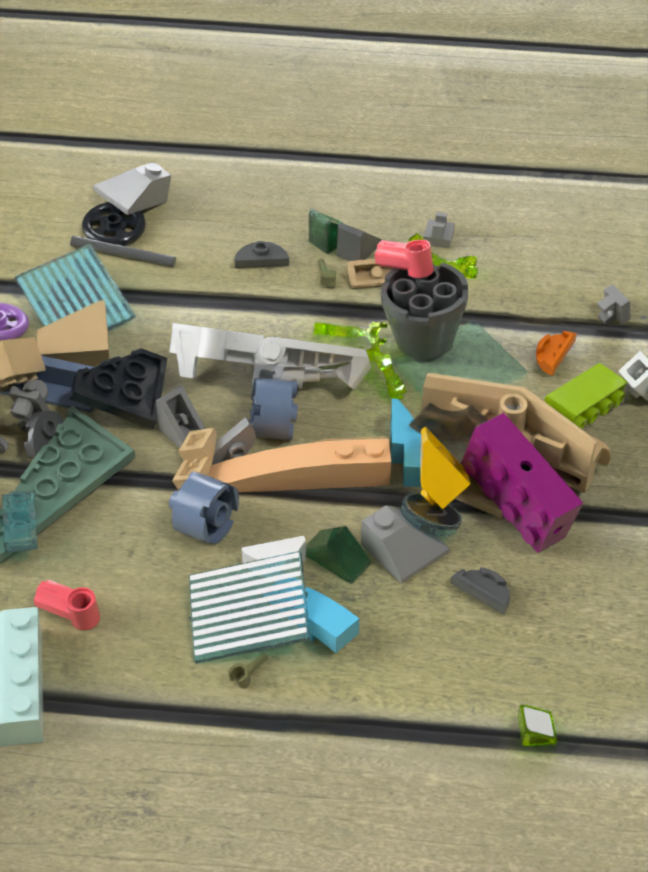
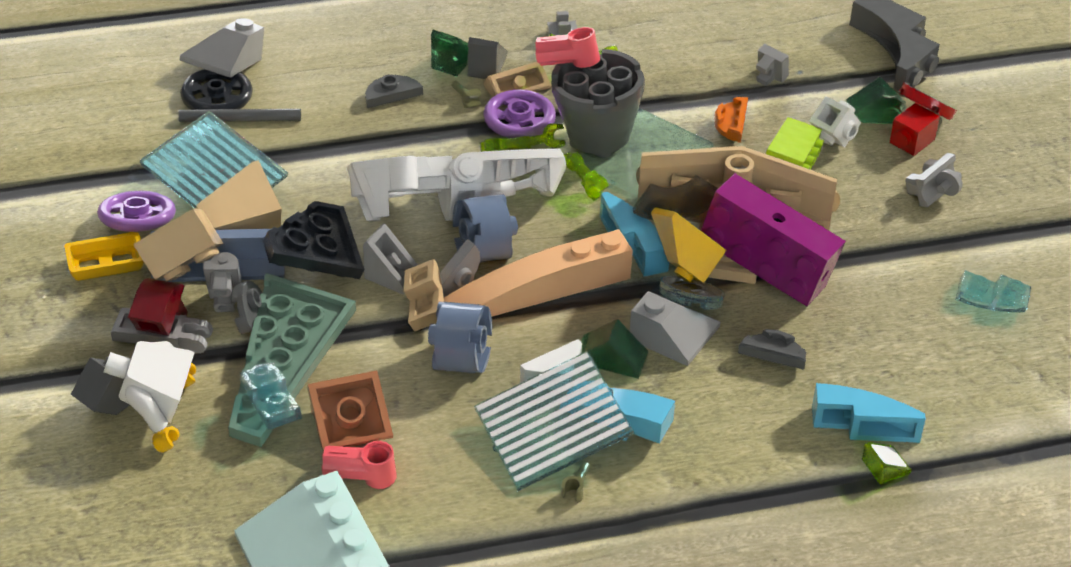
camera: 20 degrees left, 5 degrees down
(80, 552) = (350, 410): none -> nougat slope
(360, 303) = (518, 113): none -> medium lavender plate
(536, 675) = (866, 414): none -> medium azure slope

